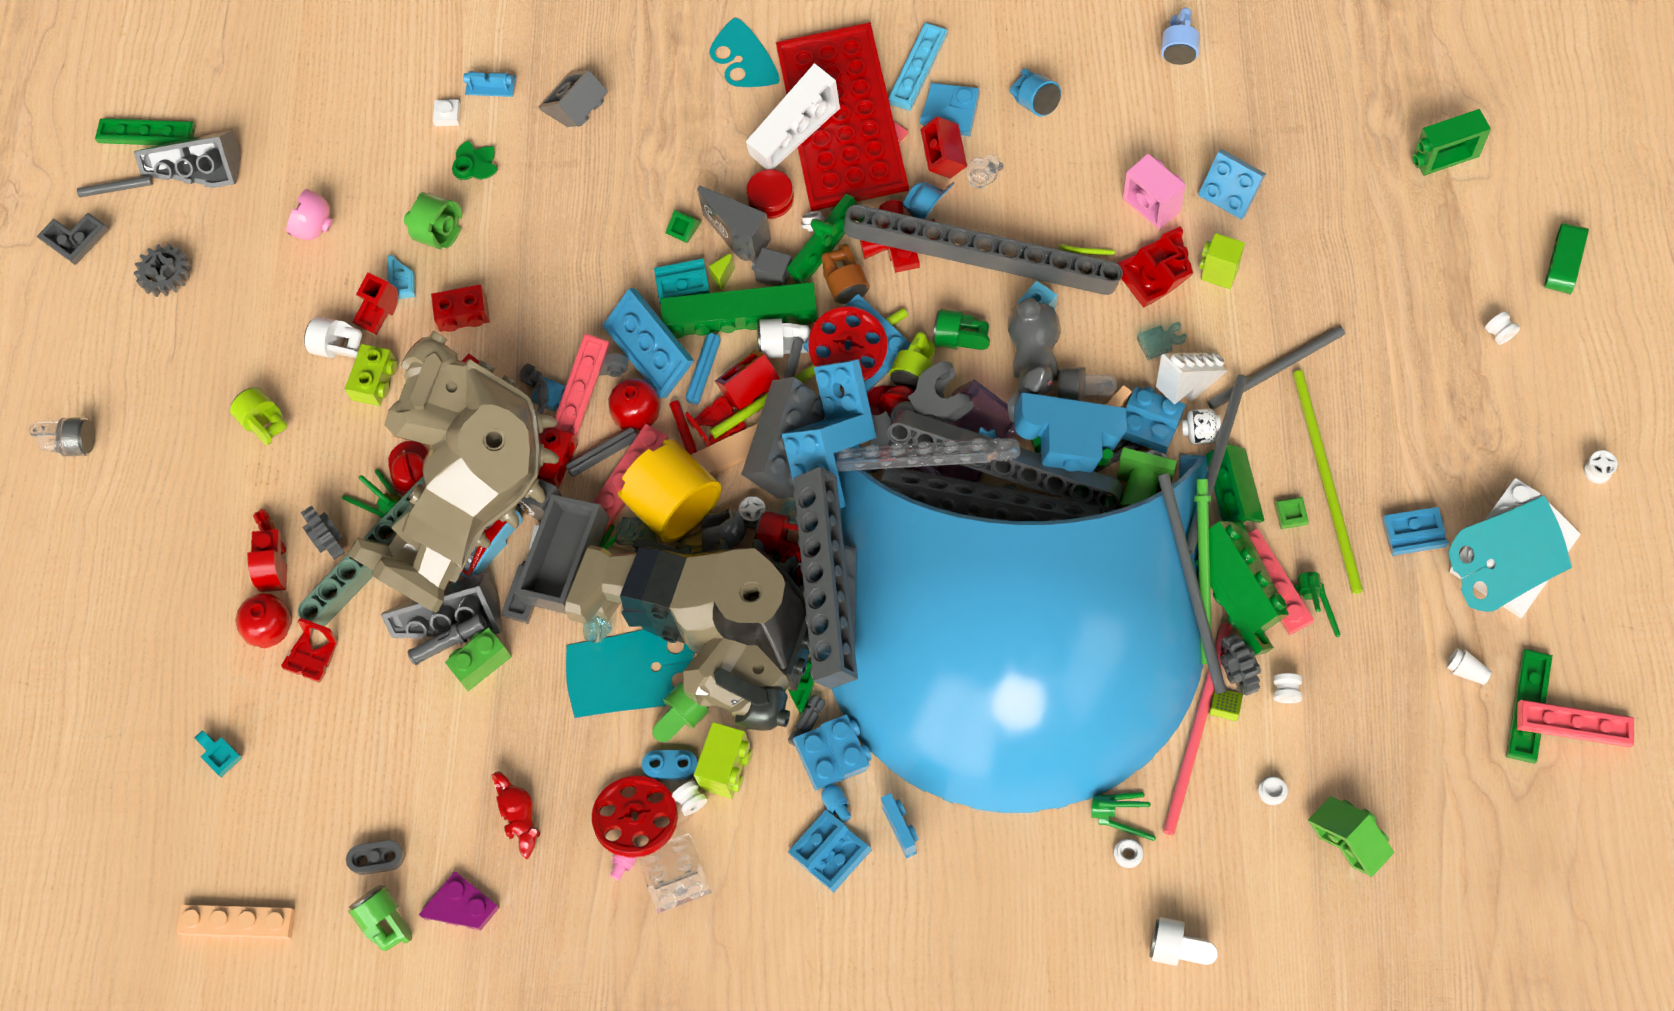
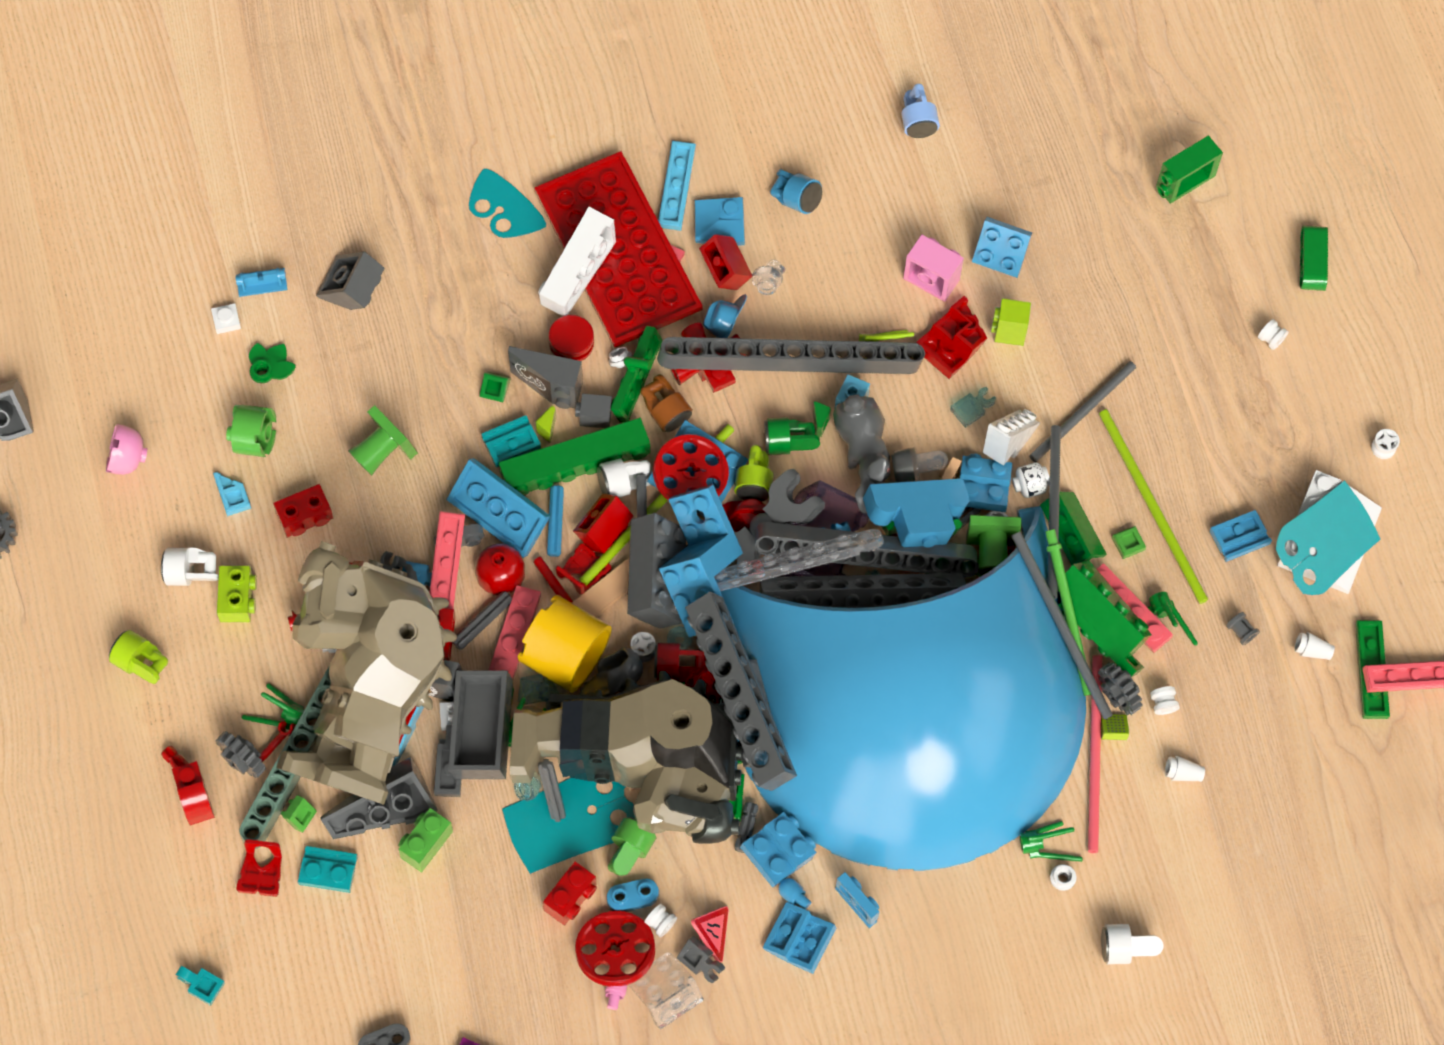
camera: 25 degrees left, 0 degrees up
(263, 620) = (204, 851): red cylinder -> none
(364, 604) = (299, 813): none -> bright green tile
(374, 517) = (277, 740): none -> red piece
(376, 667) = (327, 869): none -> teal plate
(379, 301) = (220, 521): red brick -> none
(406, 465) = (298, 674): red piece -> none
(441, 642) = (389, 829): dark grey pin -> none
(517, 807) = (504, 966): red animal -> none
(552, 257) = (380, 443): none -> bright green plant
(605, 748) = (569, 893): none -> red brick
(613, 636) = (551, 790): none -> axle
(716, 848) = (697, 959): none -> dark grey plate
(723, 761) = (684, 874): lime brick -> none
(740, 822) = (712, 930): none -> piece
(999, 319) = (821, 417): none -> green slope
(1272, 790) = (1173, 793): white plate -> none
(1289, 767) = (1183, 770): none -> white cone
(1353, 833) = (1252, 814): bright green brick -> none
(1393, 630) = (1243, 628): none -> dark grey bush

